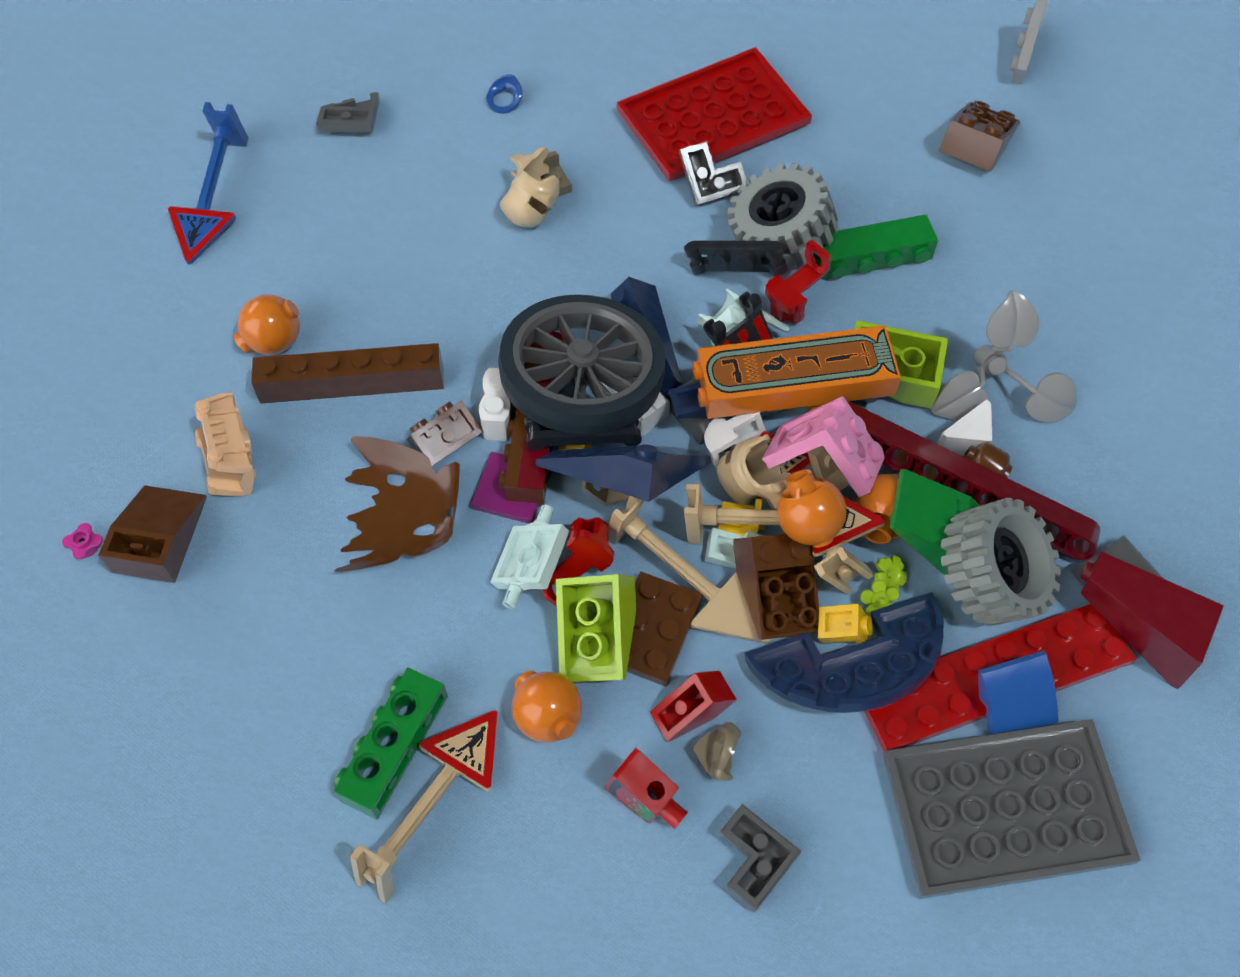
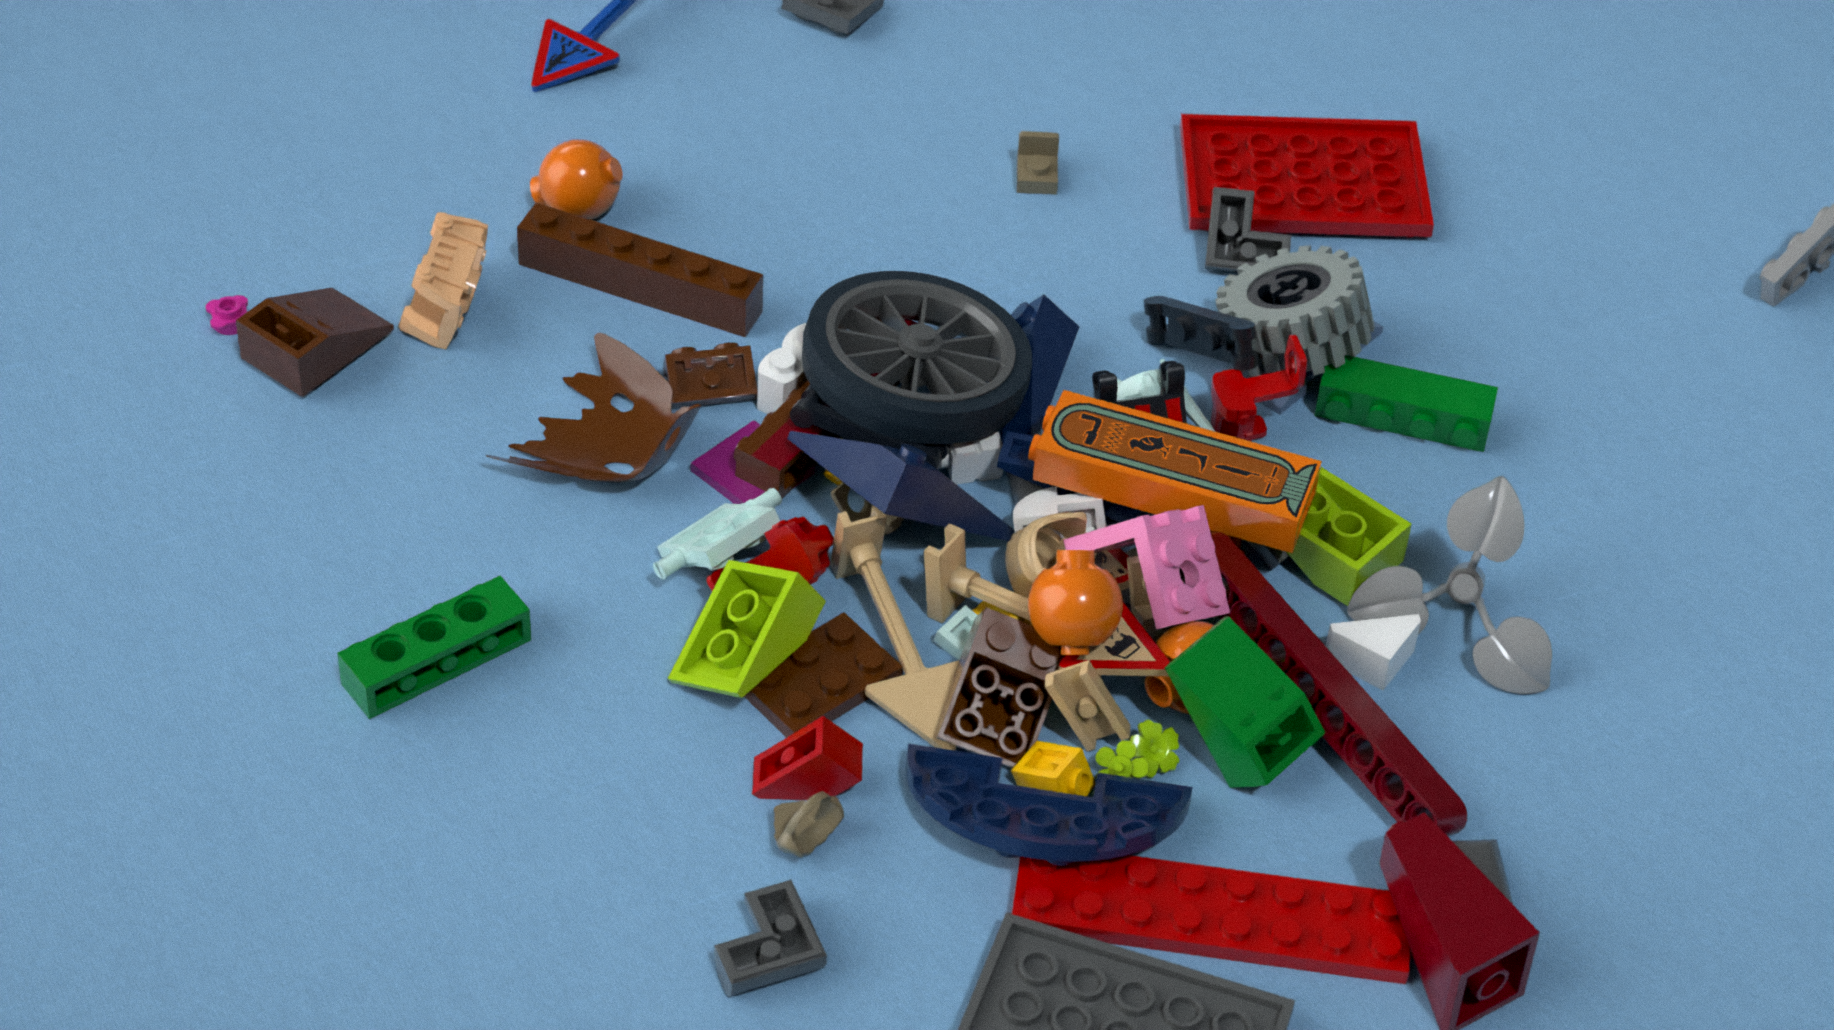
camera: 25 degrees right, 15 degrees down
(464, 752) = (509, 693): tan piece -> none
(507, 82) = (1052, 40): blue piece -> none
(530, 196) = (994, 164): tan piece -> none
(546, 706) = (633, 688): orange brick -> none
(633, 781) = (686, 809): red torso -> none
(979, 135) = (1655, 335): reddish brown slope -> none
(990, 457) = (1378, 681): reddish brown head -> none
(1001, 562) = (1287, 733): light grey wheel -> none
(1019, 694) = (1216, 925): blue slope -> none

